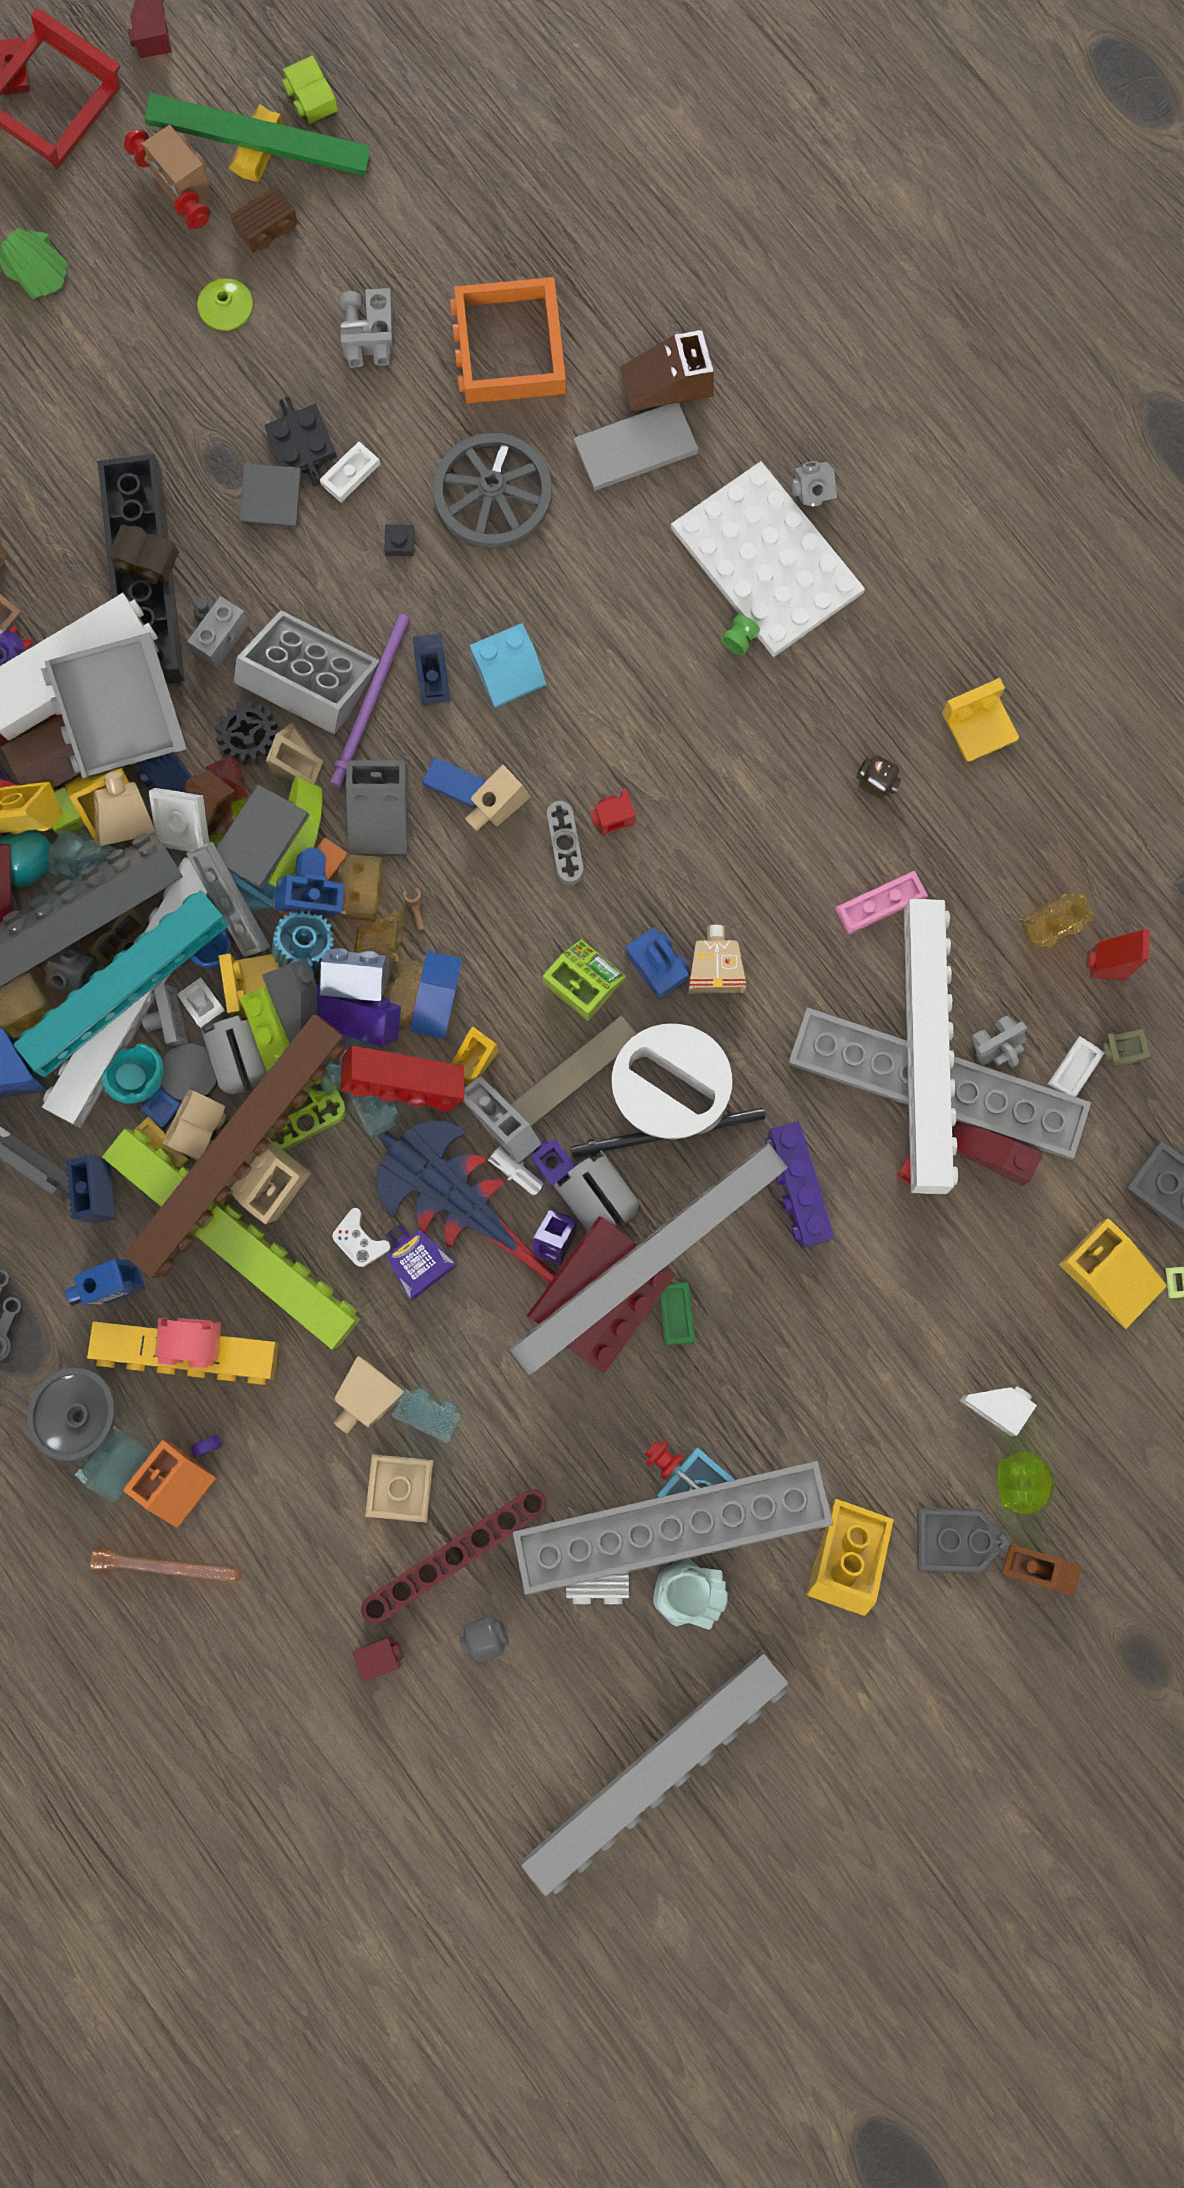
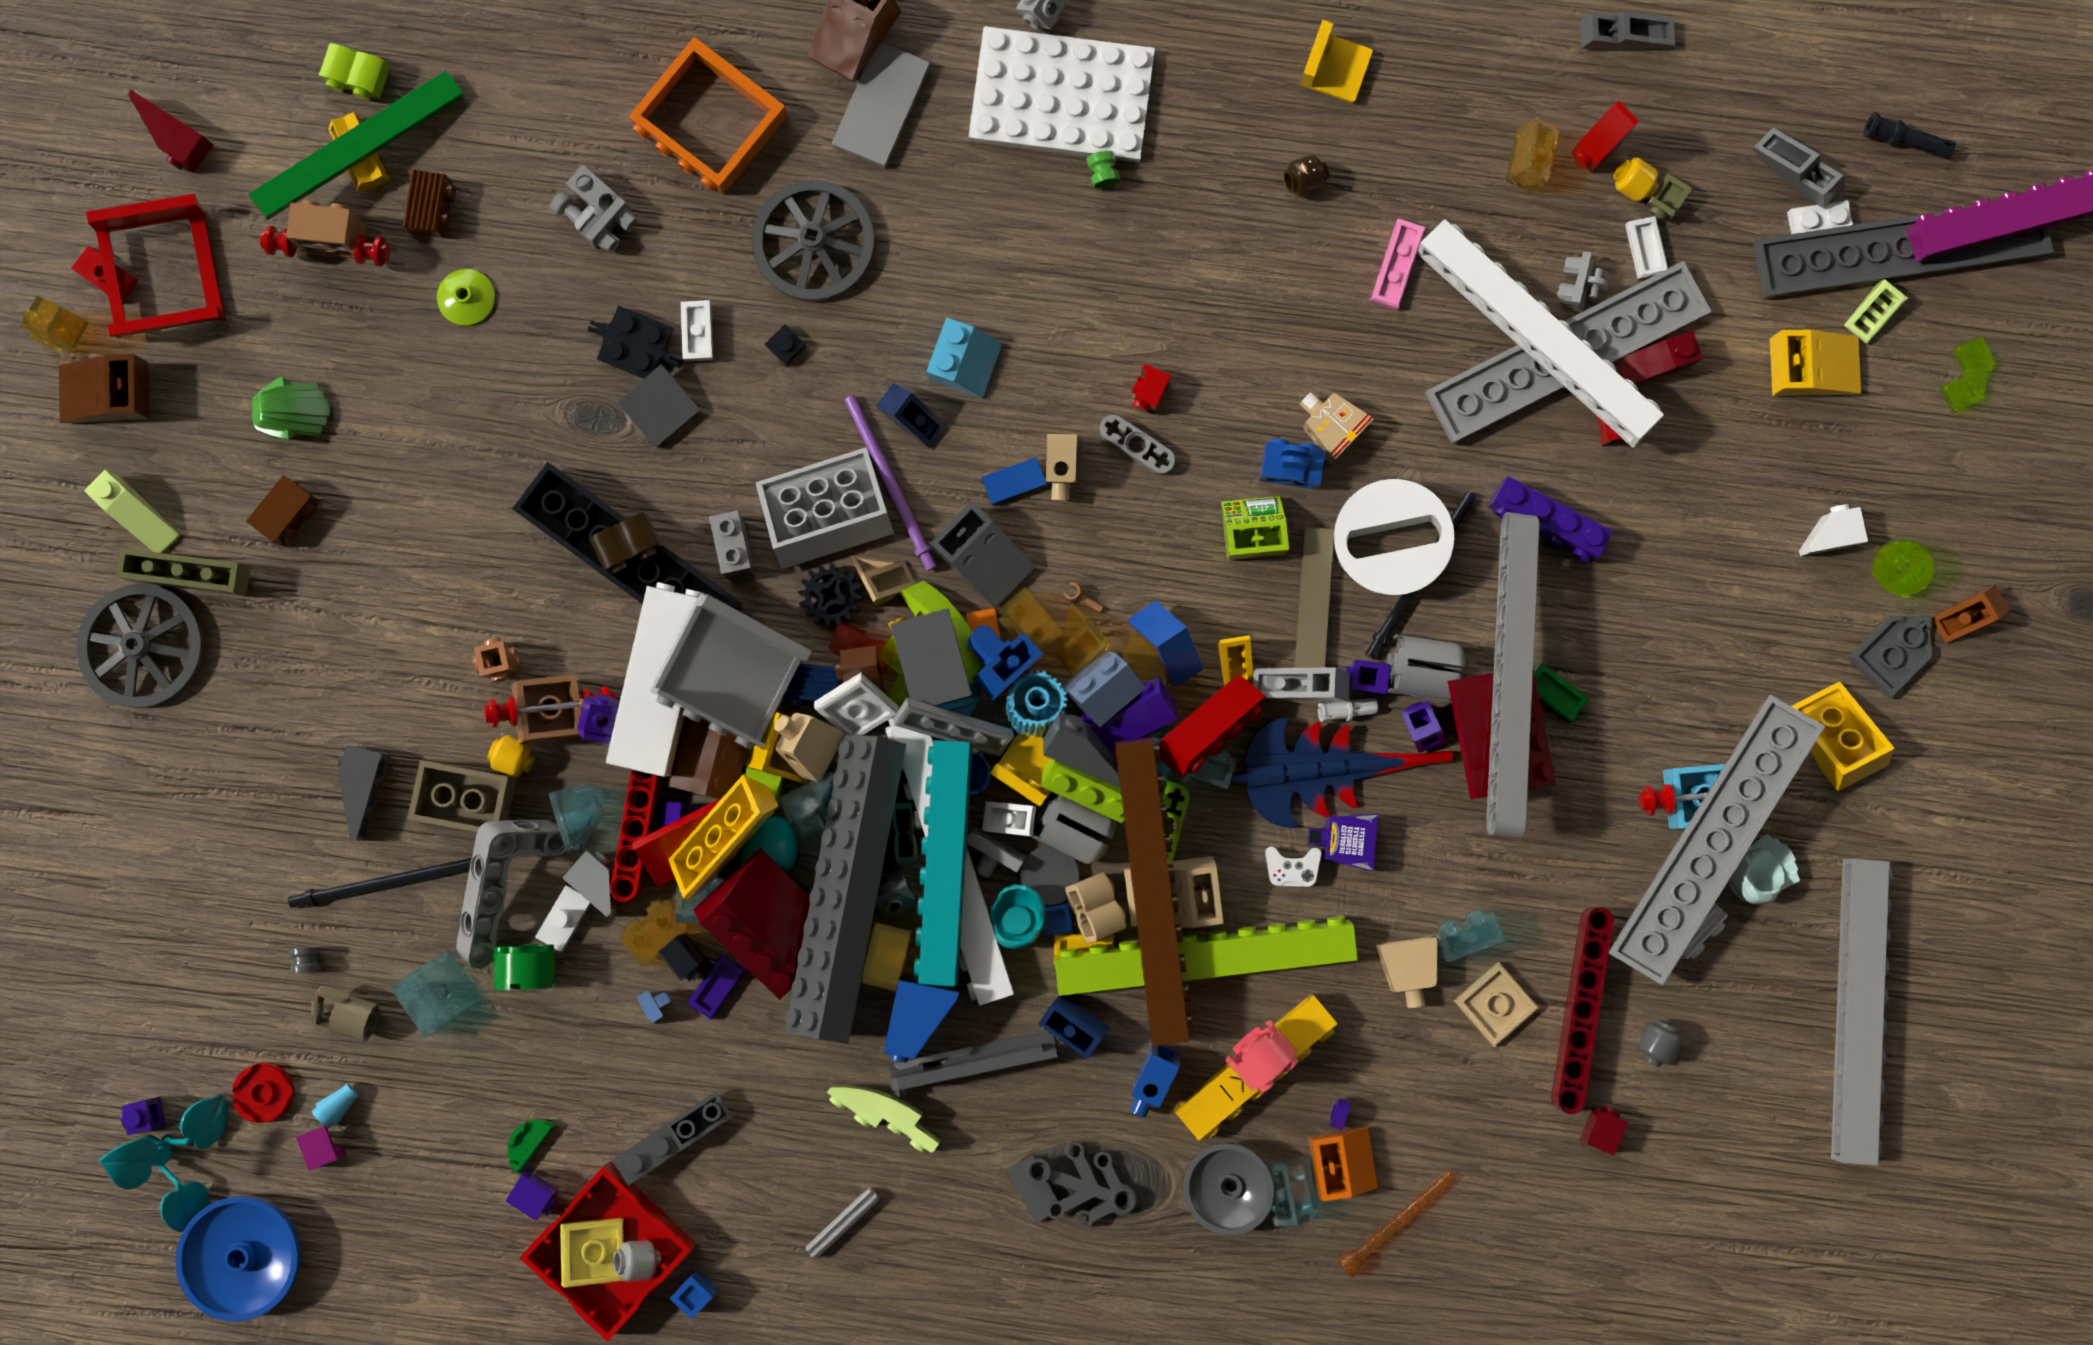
camera: 45 degrees left, 5 degrees up
(201, 609) = (702, 539): dark grey piece -> none
(1116, 1012) = (1636, 179): none -> yellow head

